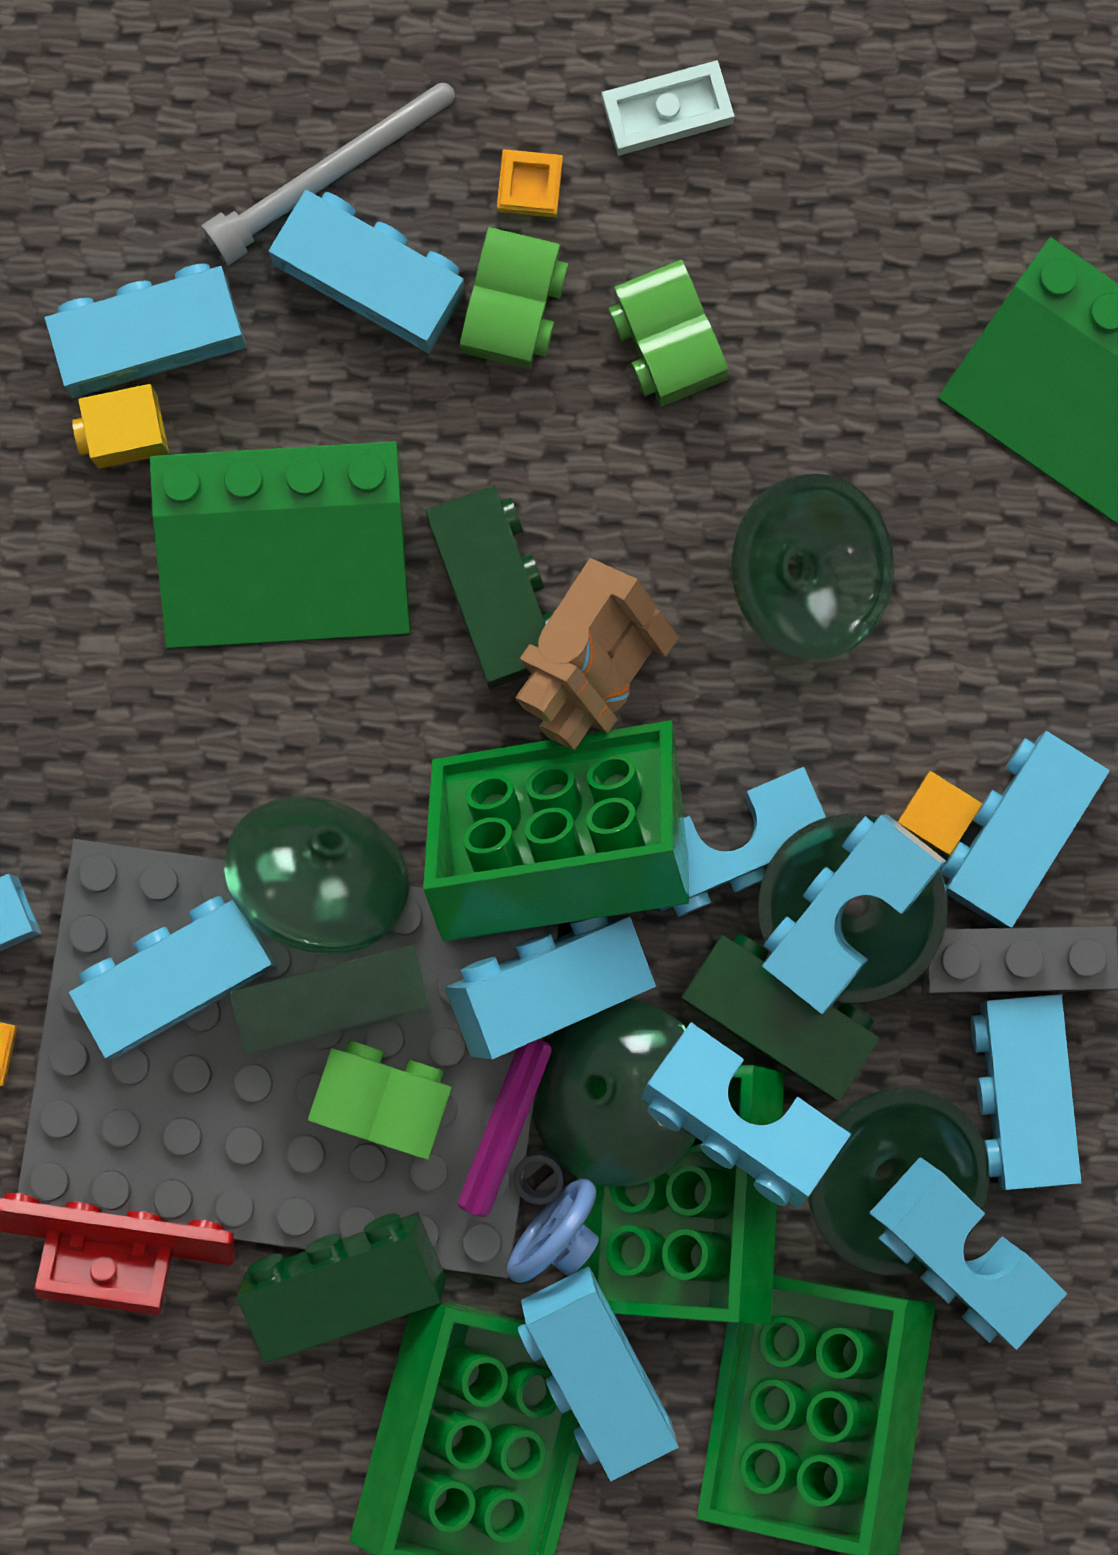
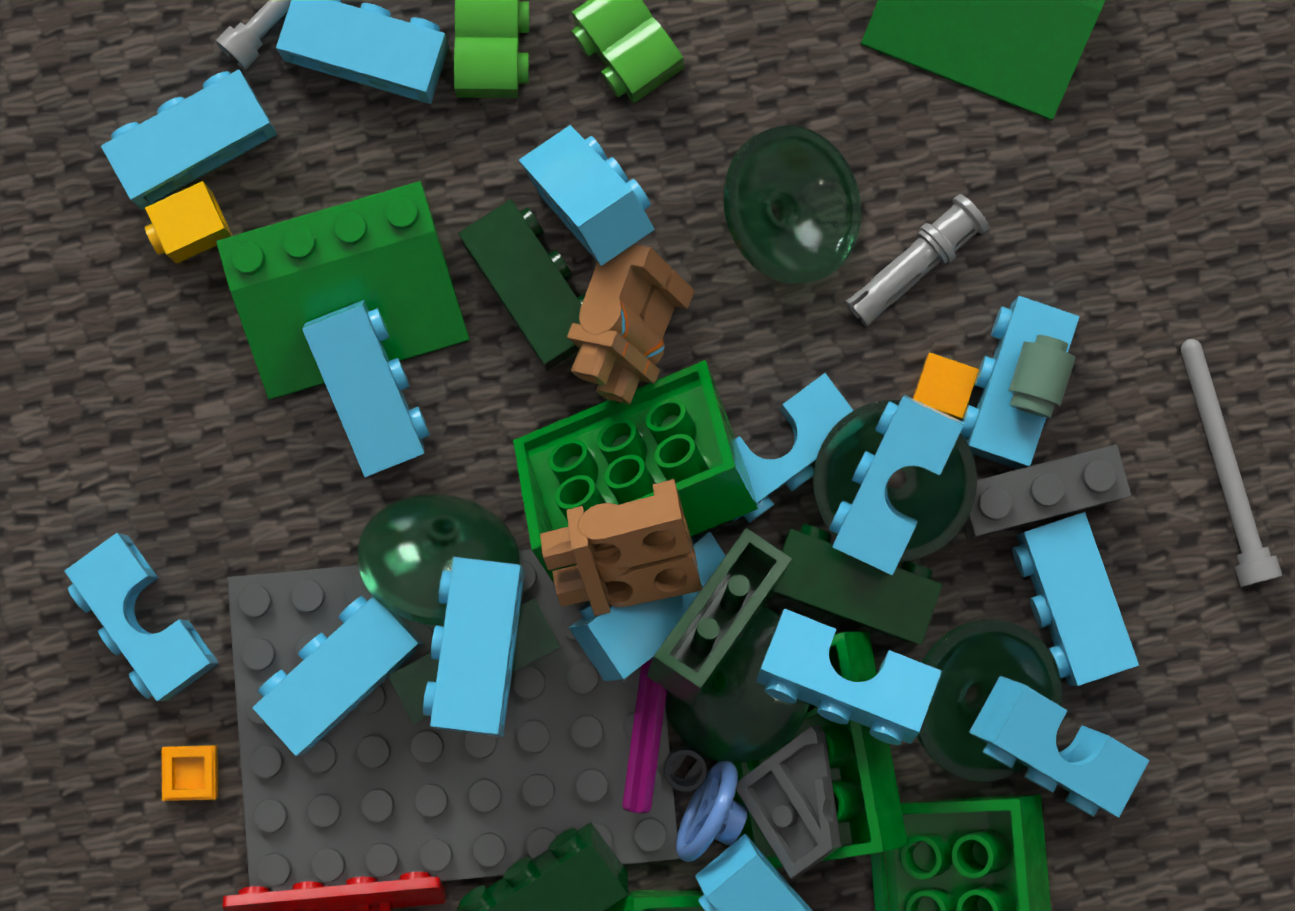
camera: 15 degrees left, 0 degrees up
(281, 661) = (366, 387): none -> medium azure brick
(334, 983) = (475, 646): none -> medium azure brick
(381, 1101) = (542, 737): bright green brick -> none
(526, 917) = (624, 552): none -> medium nougat hips
(583, 500) = (589, 193): none -> medium azure brick
(615, 1015) = (718, 617): none -> dark green brick
(653, 1243) = (795, 802): none -> dark grey wing
(965, 650) = (934, 245): none -> light grey pin
(1047, 828) = (1041, 376): none -> sand green brick

